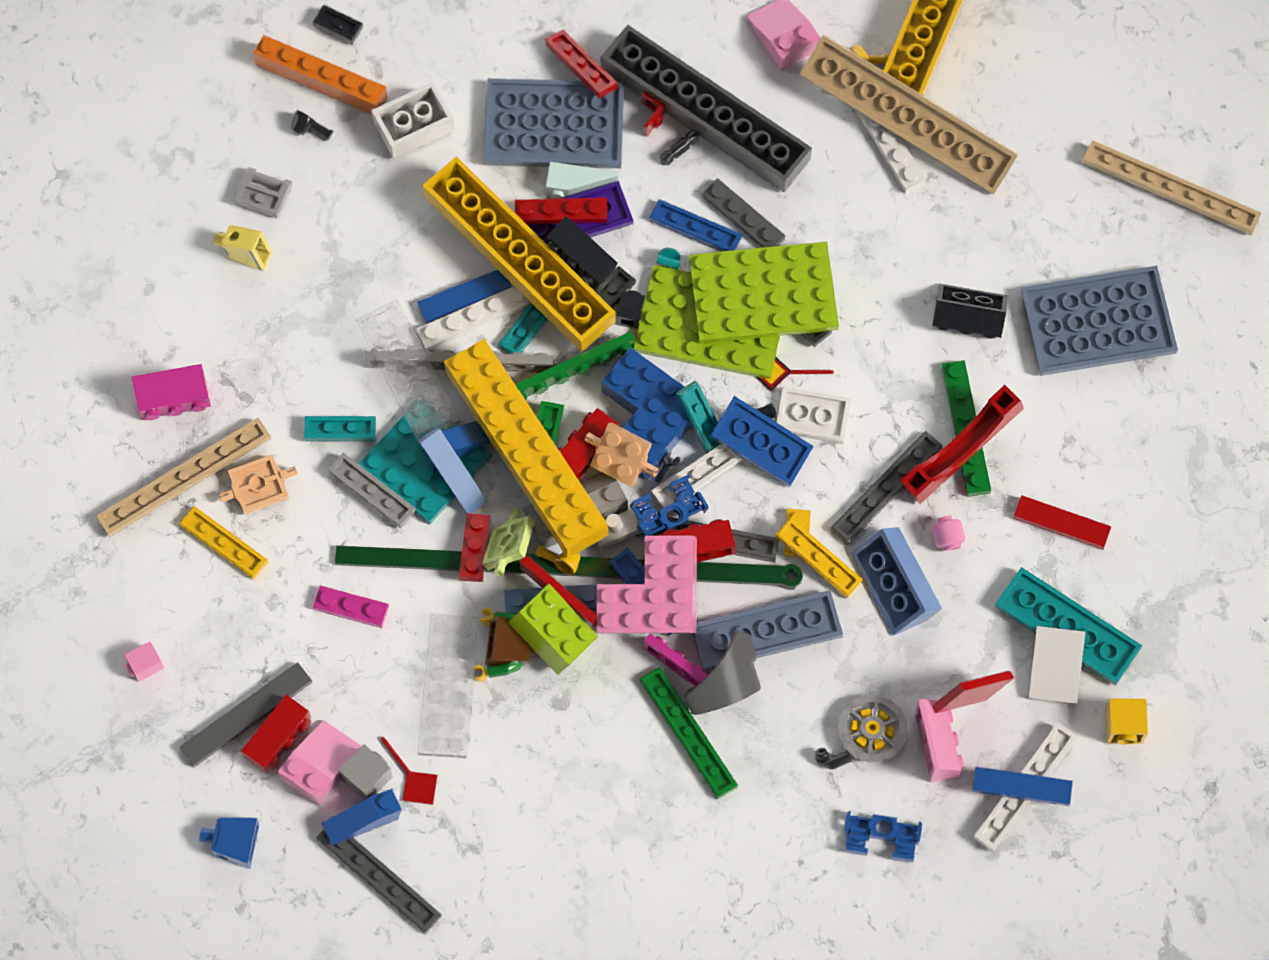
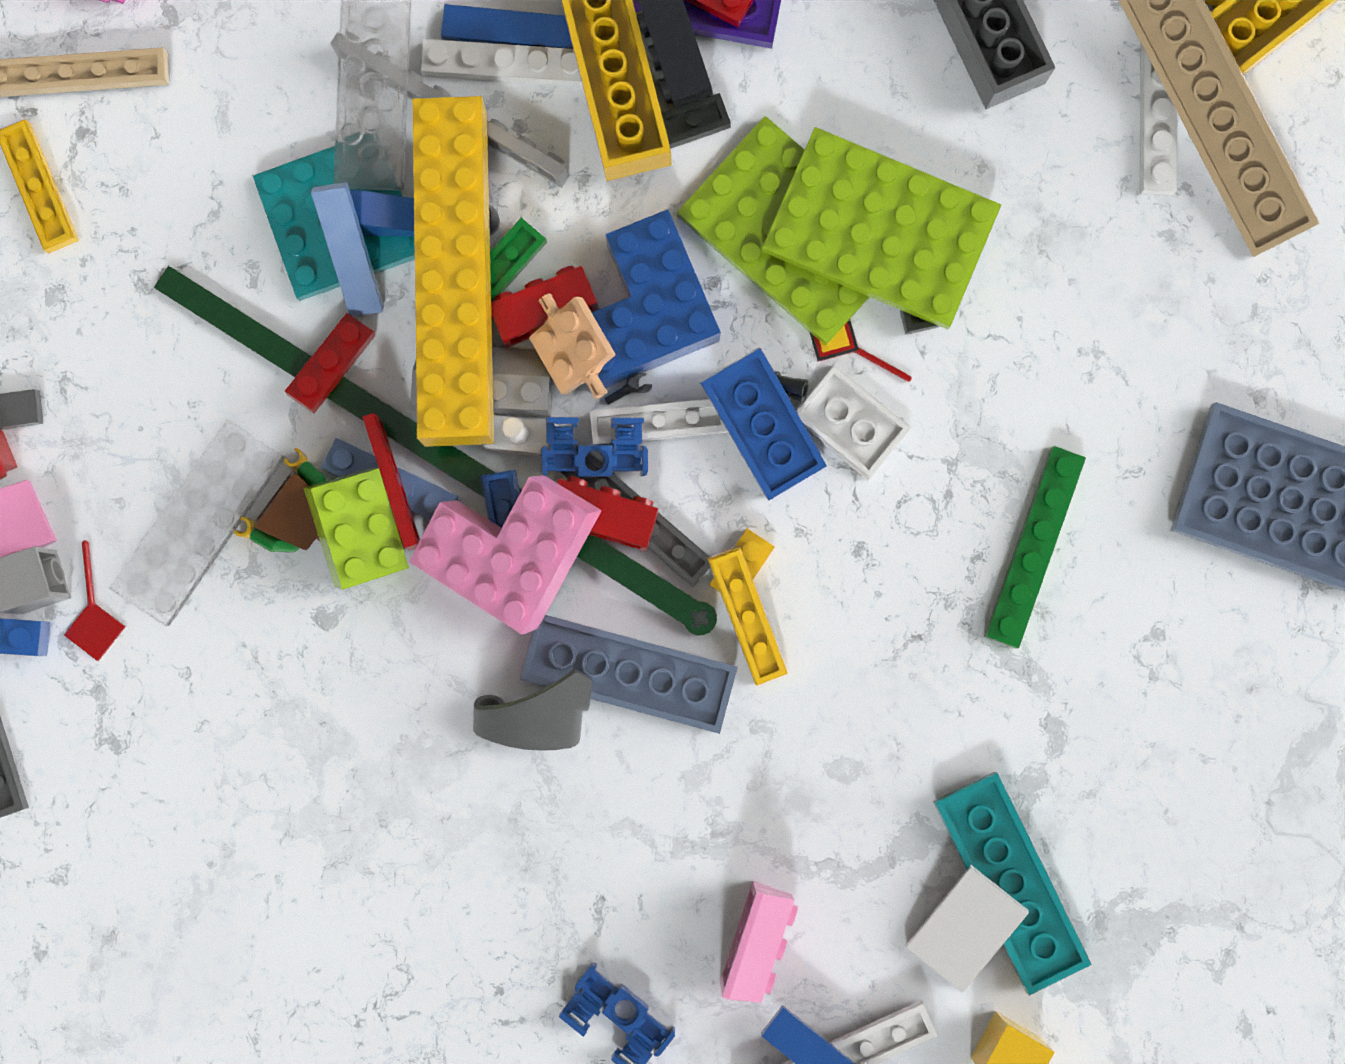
camera: 30 degrees right, 15 degrees up
(258, 484) = (116, 134): light nougat plate -> none
(340, 428) = (256, 117): teal plate -> none
(351, 606) = (141, 353): dark pink plate -> none
(372, 490) = (248, 218): light grey plate -> none
(508, 542) = (367, 382): yellowish green plate -> none
(523, 330) = (553, 114): teal tile -> none
(565, 565) = (429, 454): yellow bar -> none
(577, 365) = (593, 195): green plate -> none
(630, 309) = (701, 157): black brick -> none
(669, 258) = (789, 117): teal plate -> none
(674, 660) = (493, 650): dark pink plate -> none
(688, 733) = (457, 748): green tile -> none
(695, 227) = (847, 94): blue tile -> none
(699, 414) = (702, 344): teal tile -> none
(743, 215) = (916, 111): dark grey plate -> none
(830, 761) = (610, 885): black arm -> none
(872, 728) = (685, 876): flat silver piece -> none
(884, 489) = (888, 569): dark grey tile -> none
(895, 580) = (828, 700): medium blue slope -> none
(935, 471) = (1019, 575): red arch -> none
(948, 533) = (930, 676): bright pink head -> none
(970, 311) = (1132, 397): black slope -> none
(973, 691) = (834, 917): tile -> none
(1062, 522) = (1085, 740): red tile -> none

